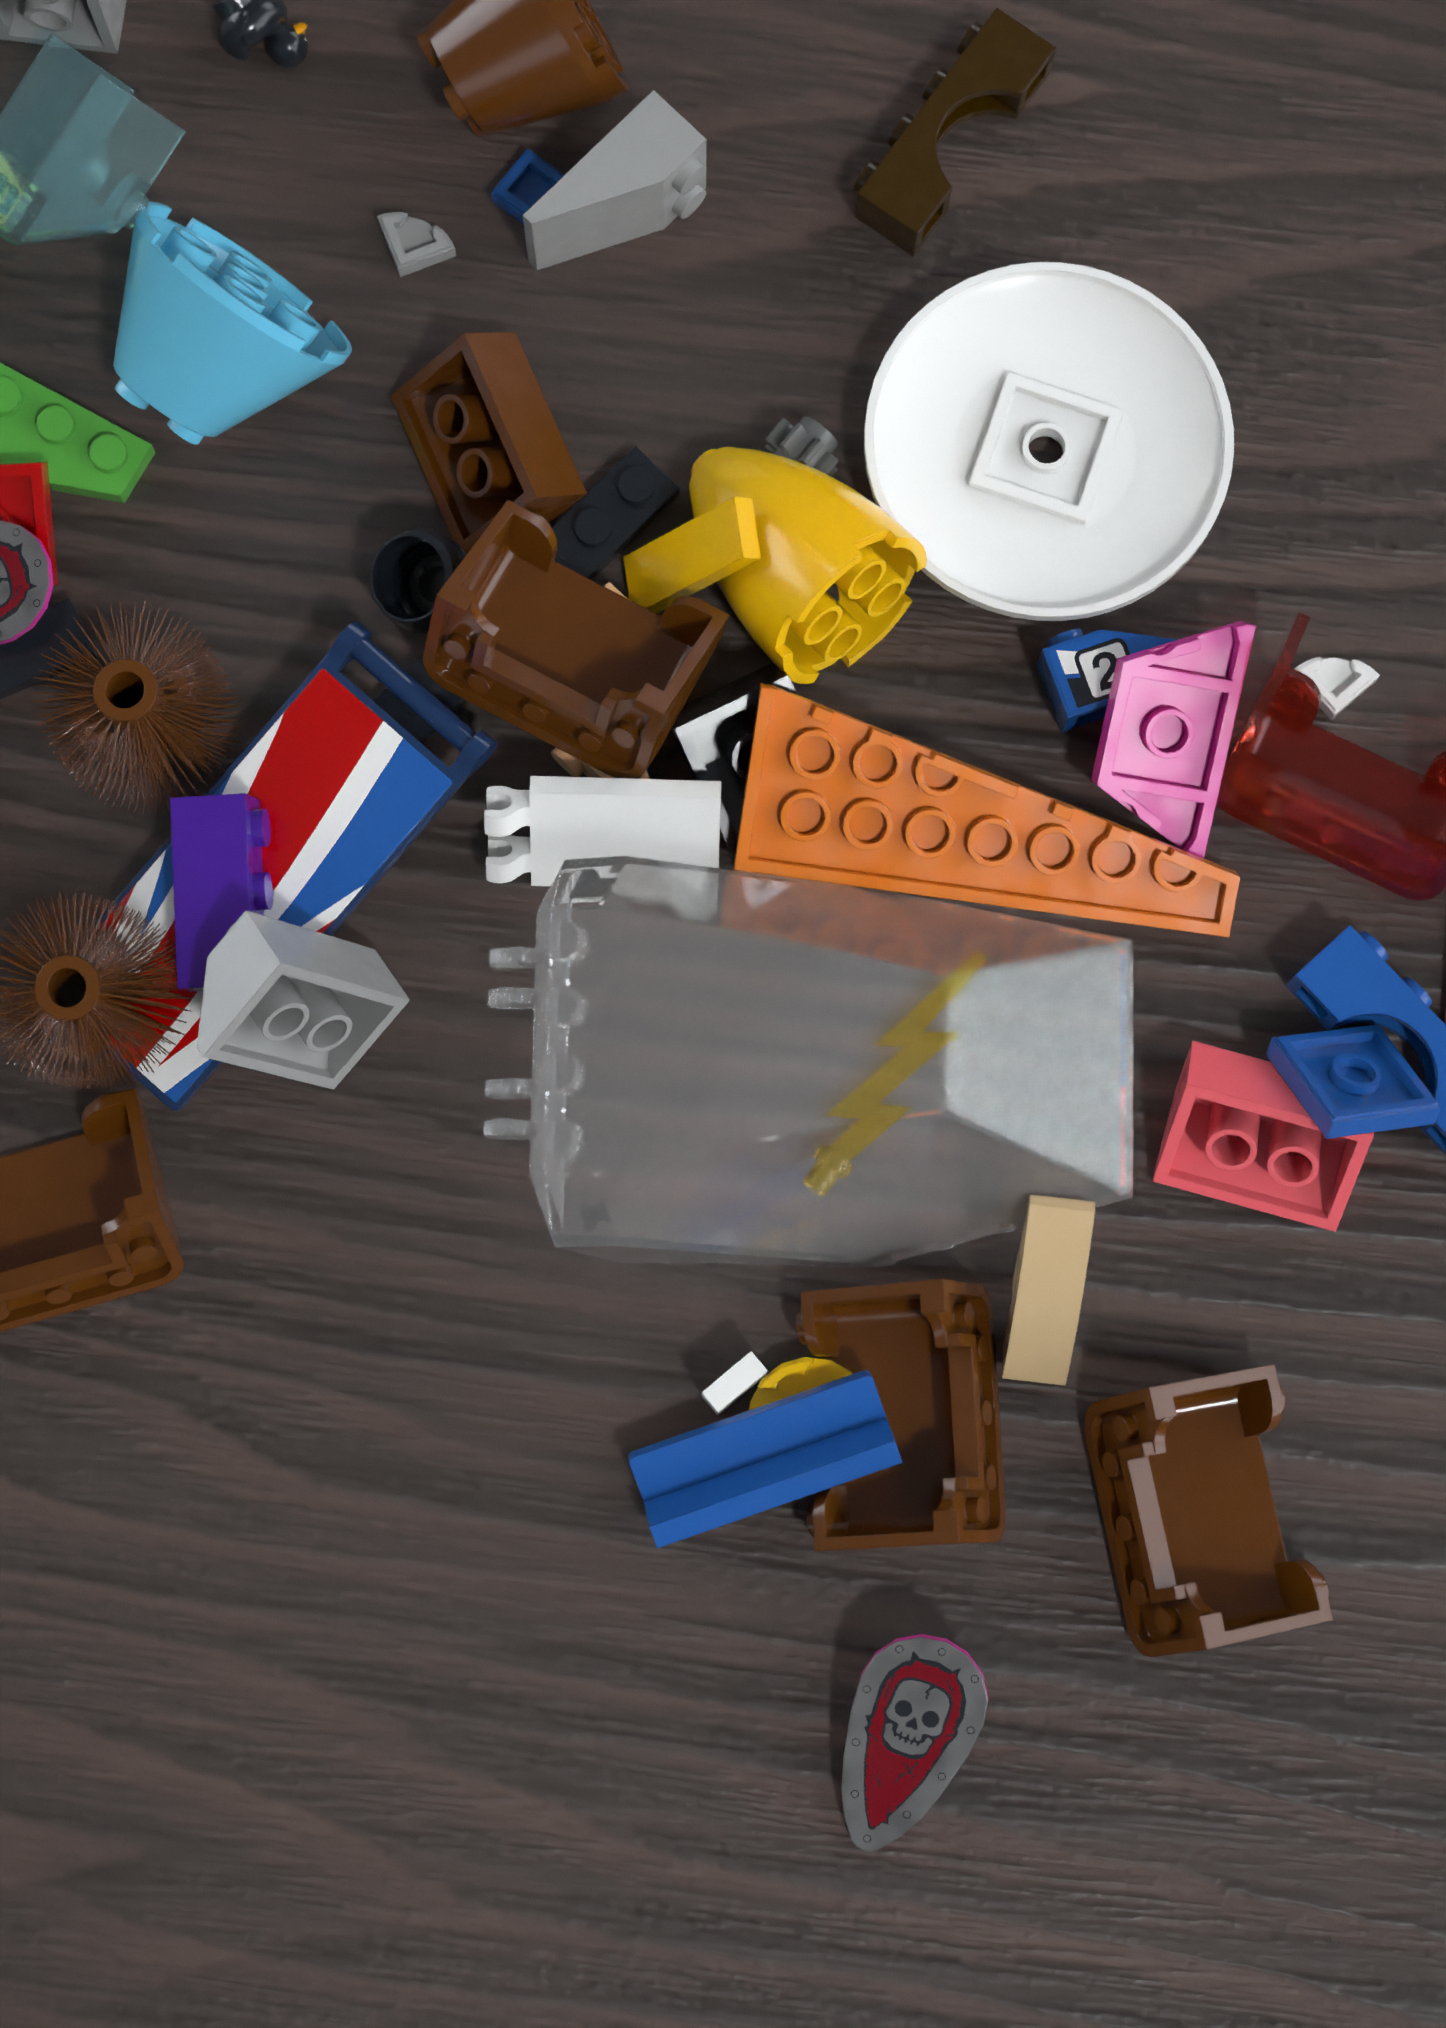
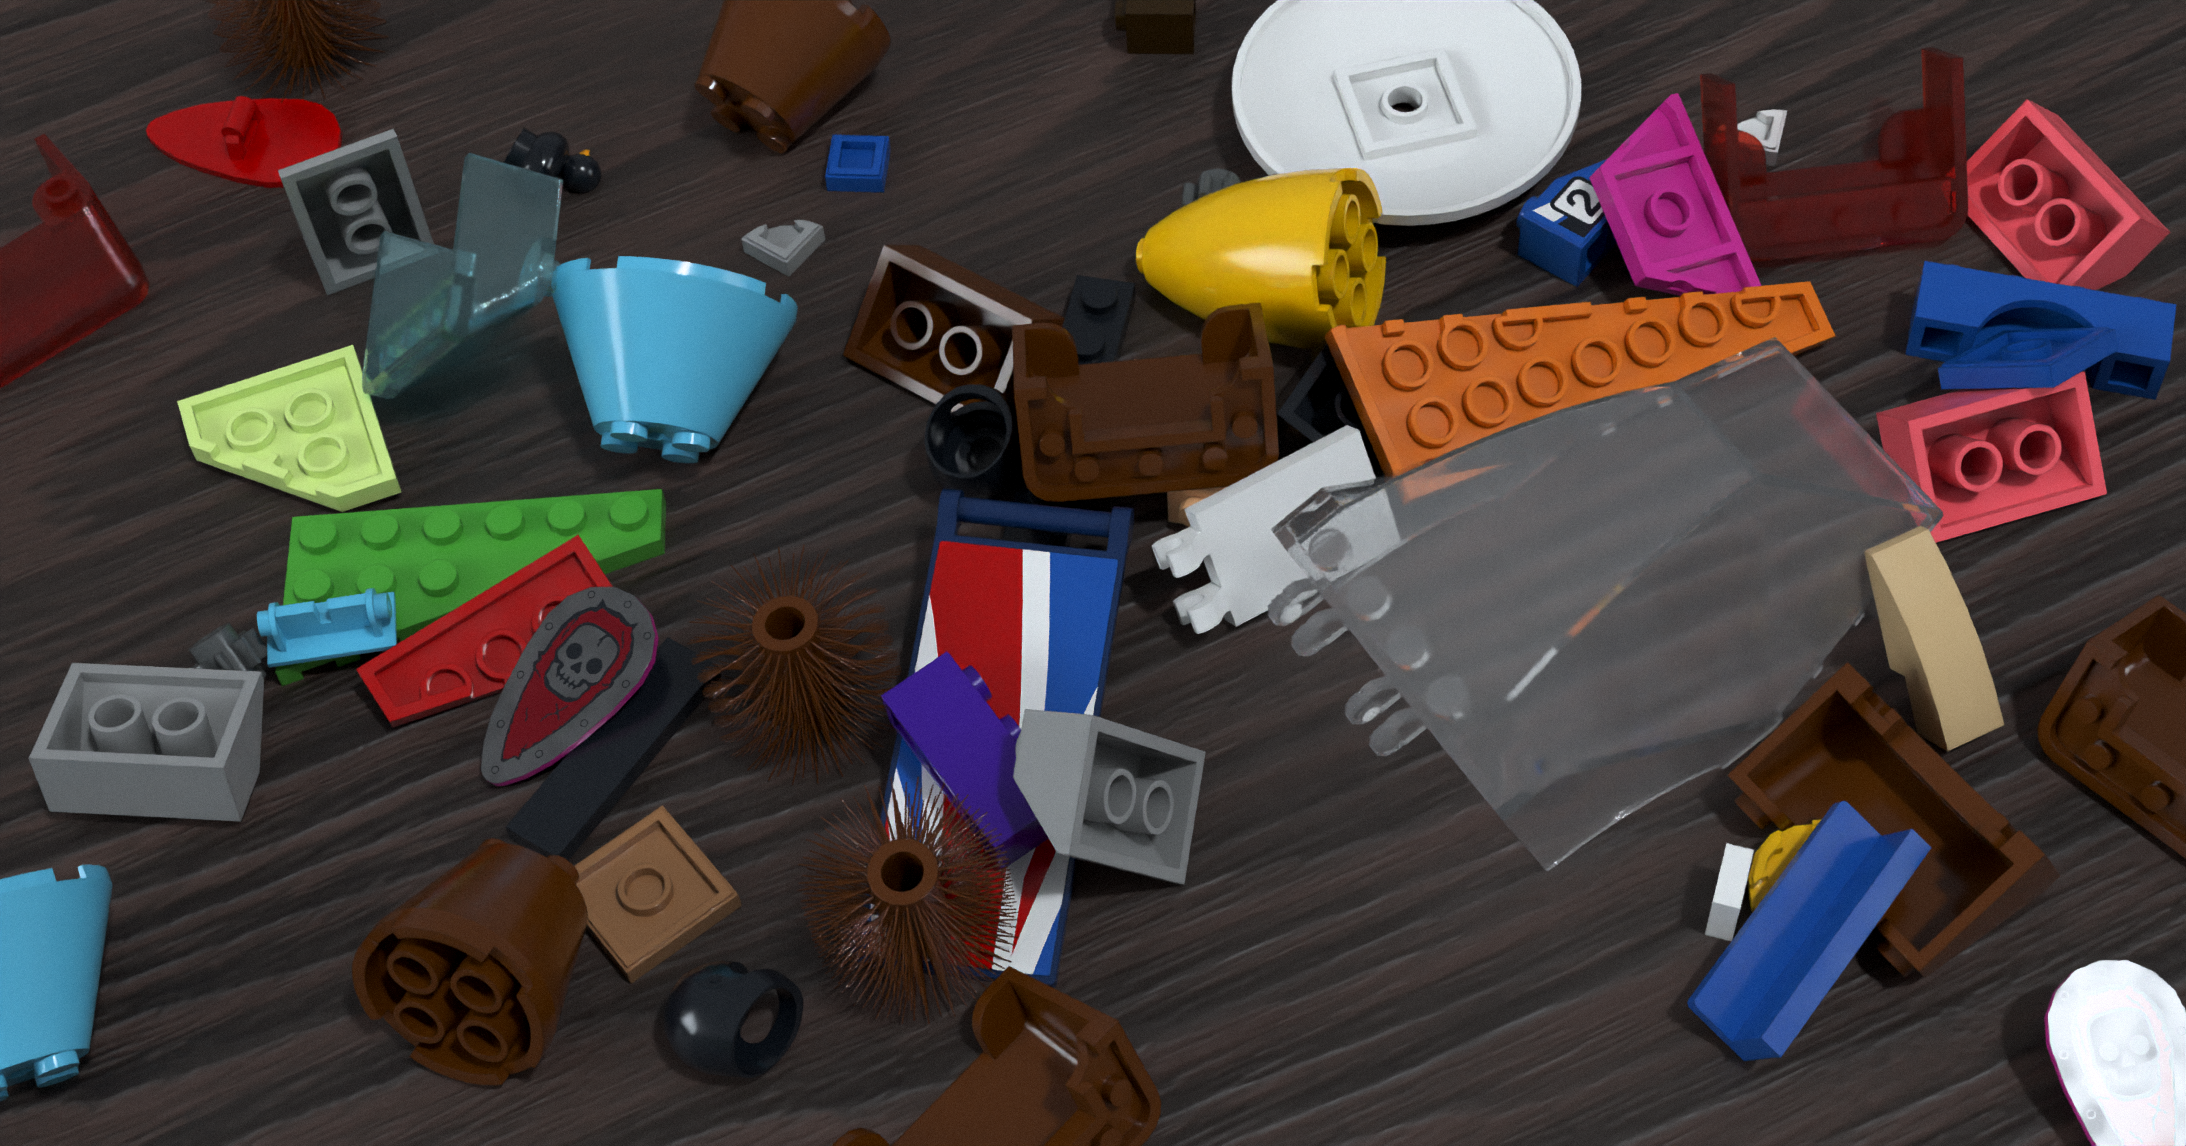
camera: 25 degrees left, 25 degrees down
(622, 188) = (936, 102): light grey slope -> none
(693, 555) = (1195, 286): yellow tile -> none
(864, 1101) = (1706, 551): clear yellow piece -> none

